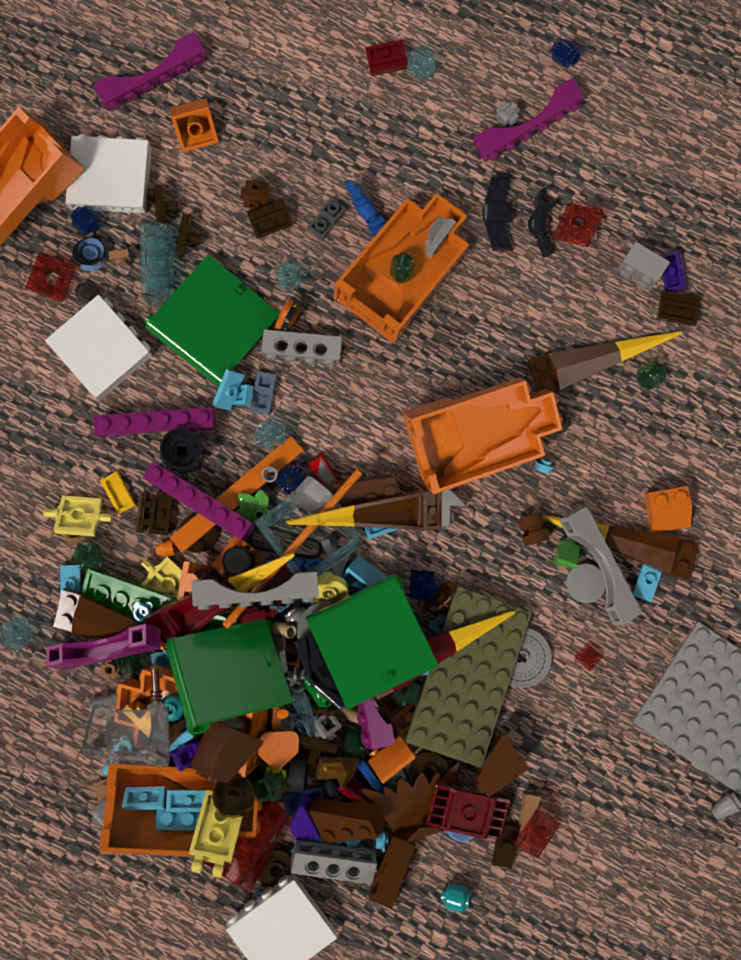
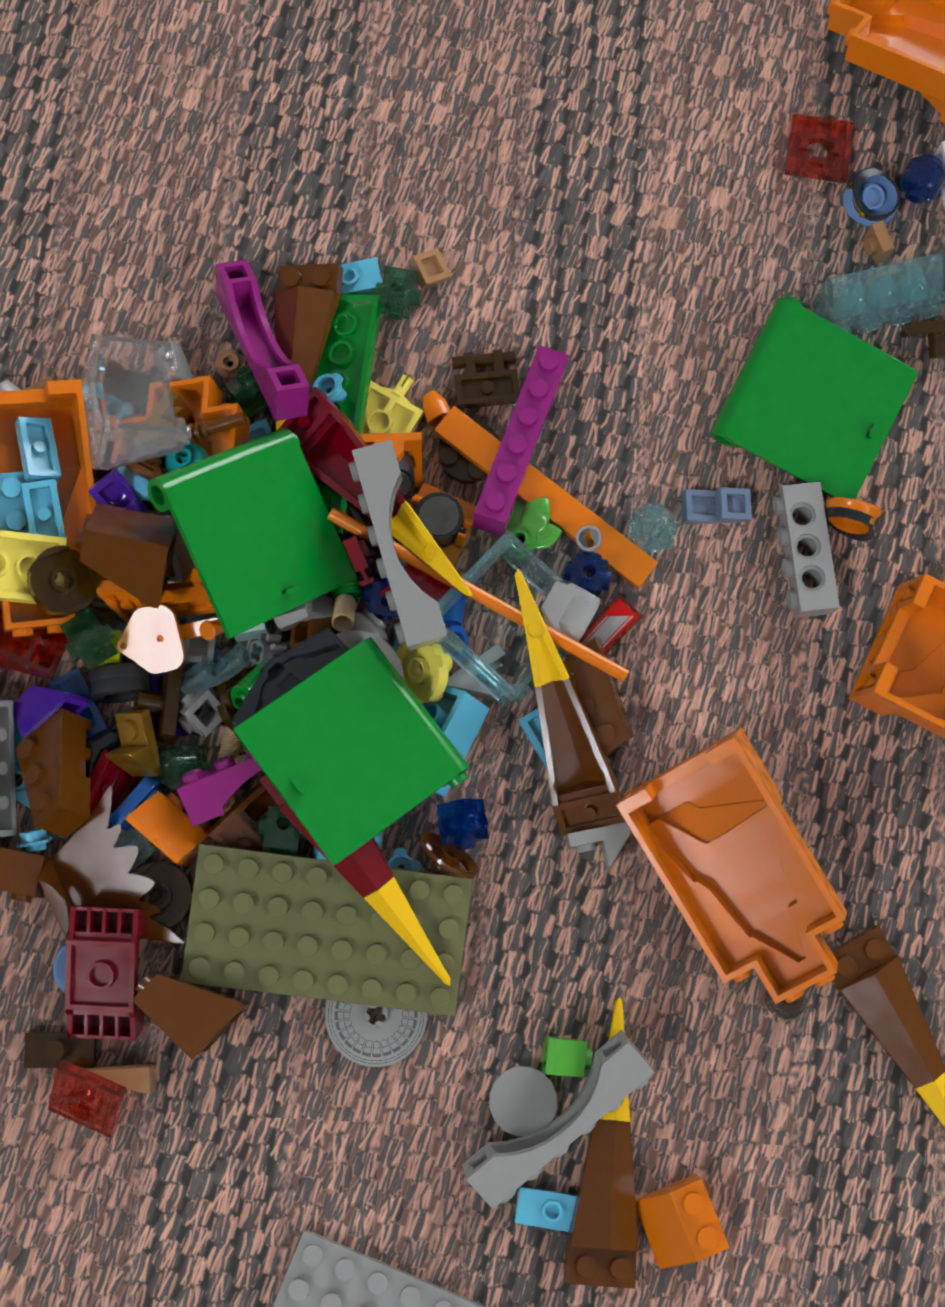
camera: 65 degrees right, 5 degrees down
(16, 634) = (257, 213): clear light blue brick -> none
(78, 515) = (458, 264): light yellow plate -> none
(86, 292) = (808, 205): clear smoke hat -> none
(99, 347) = (728, 241): white brick -> none
(118, 492) = (507, 319): yellow tile -> none
(158, 421) = (639, 372): magenta arch -> none
(181, 439) = (599, 379): black wheel -> none
(228, 389) = (709, 448): medium azure plate -> none
(244, 396) = (705, 474): medium azure plate -> none
(288, 533) = (468, 600): black piece -> none
(292, 282) = (915, 505): clear light blue brick -> none
(533, 529) = (594, 990): reddish brown wheel -> none
(544, 466) = (705, 989): medium azure plate -> none
(588, 657) = (399, 1130): clear red plate -> none
(651, 375) = (906, 1145): clear green head -> none

